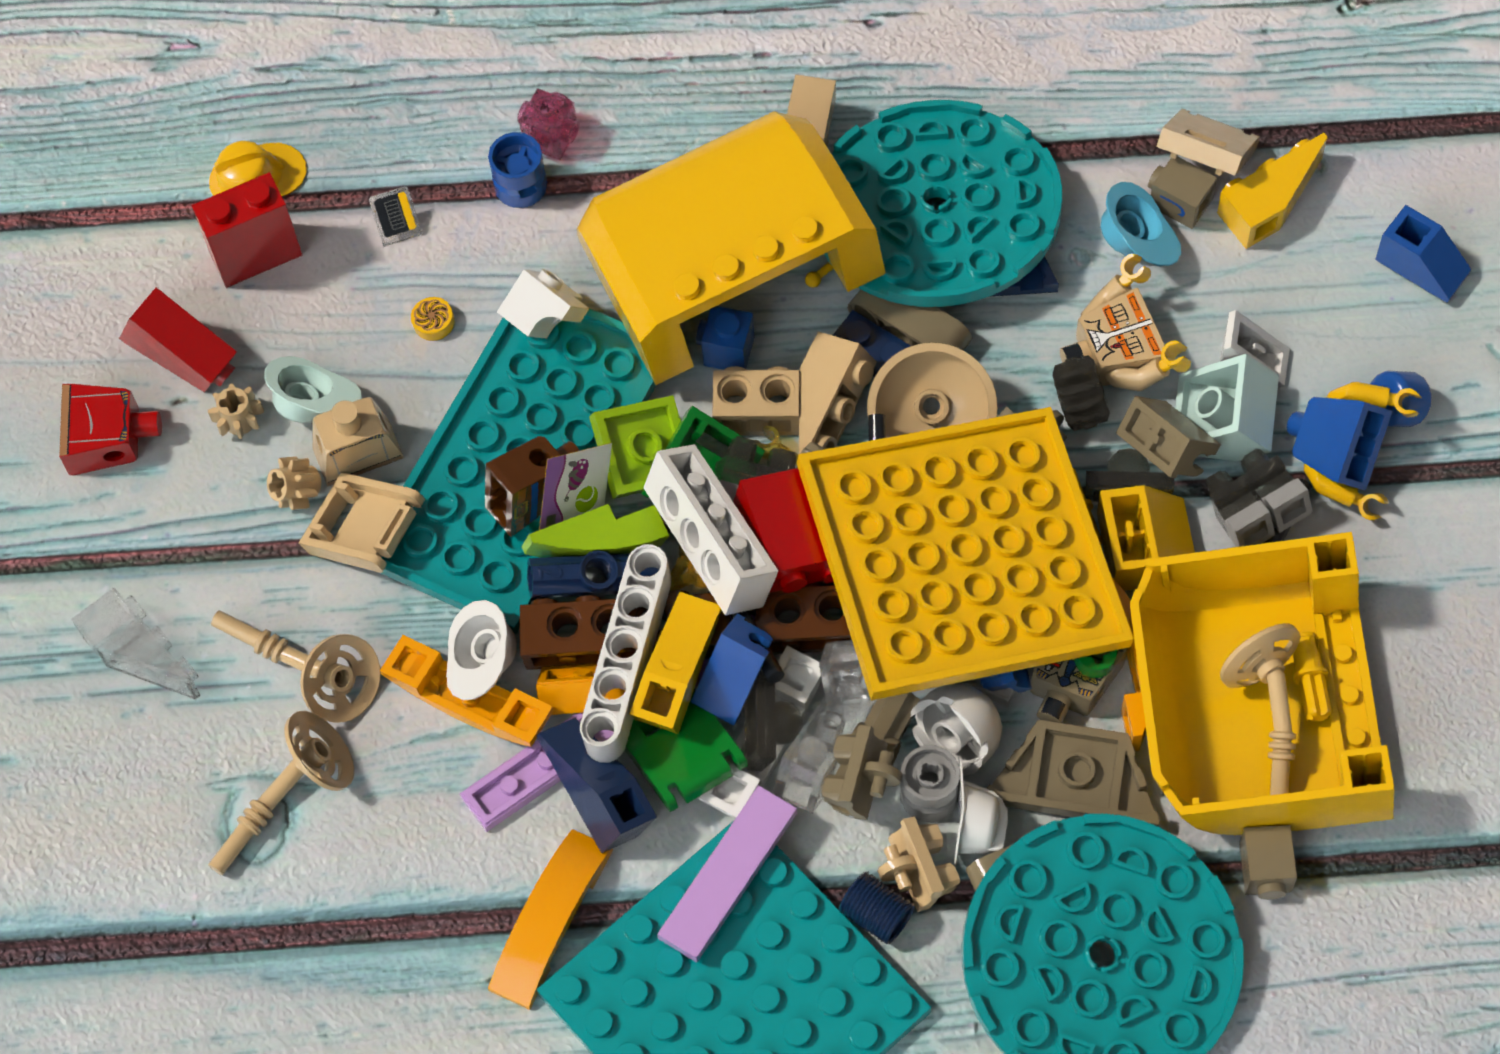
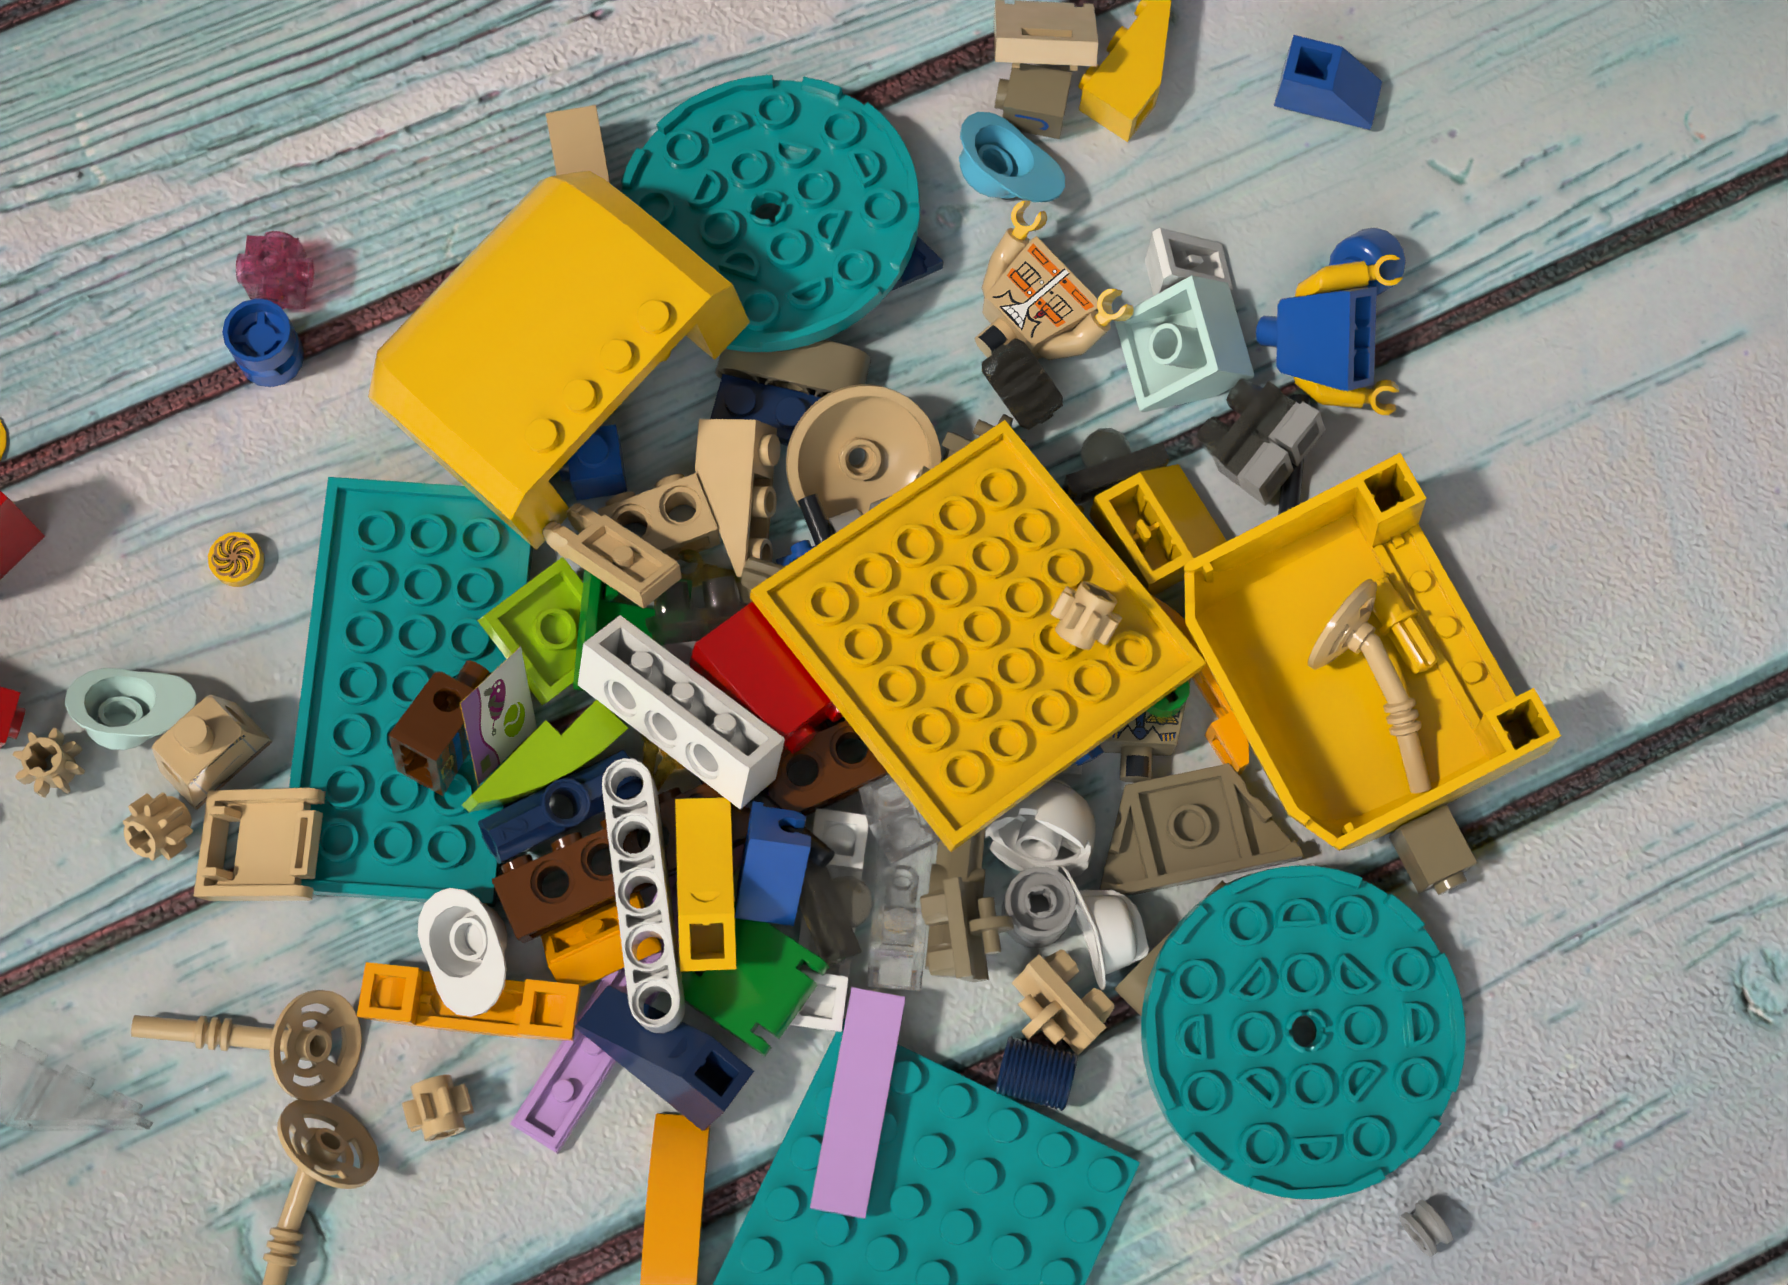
camera: 30 degrees left, 10 degrees up
(395, 216) = (138, 450): slope -> none
(410, 759) = (437, 1108): none -> tan gear
(540, 303) = (362, 502): white brick -> none
(709, 402) = (614, 555): none -> tan hinge
(1048, 563) = (1086, 615): none -> tan gear
(1165, 436) = (1136, 402): dark tan hinge -> none

